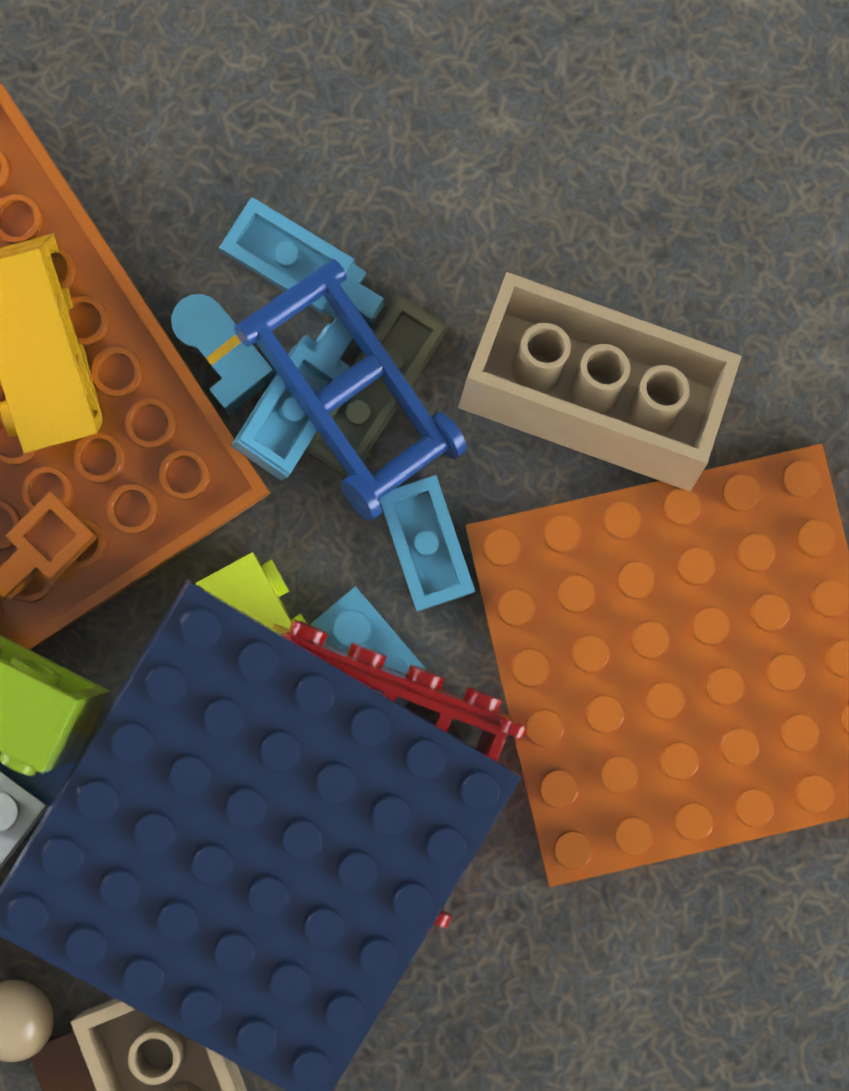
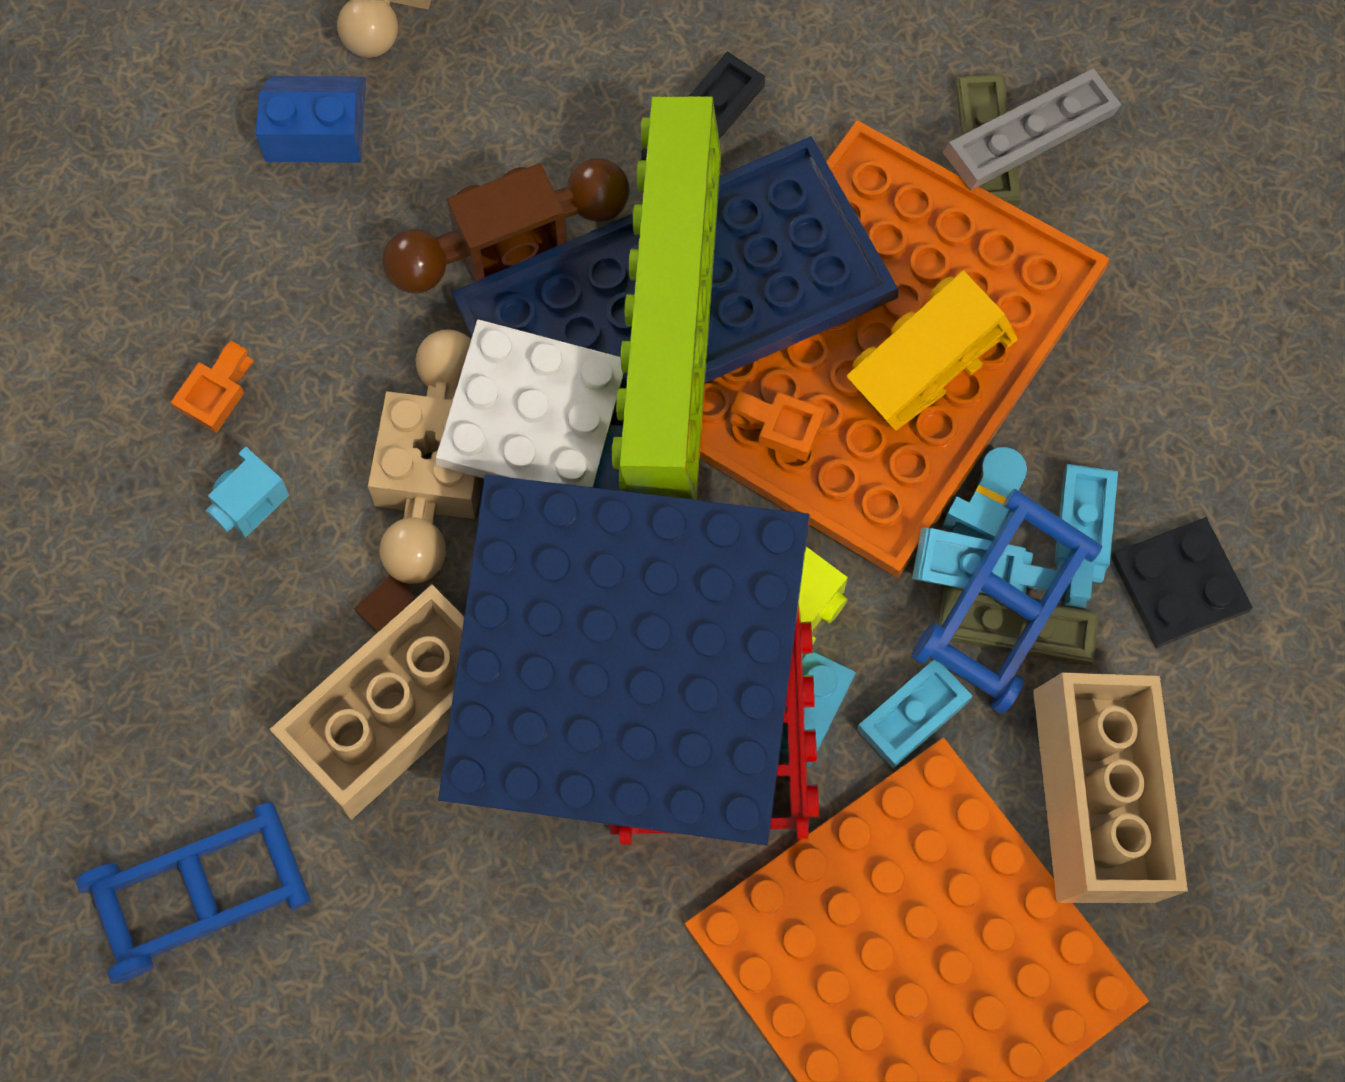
camera: 70 degrees right, 15 degrees down
(400, 189) = (1181, 582): none -> black plate

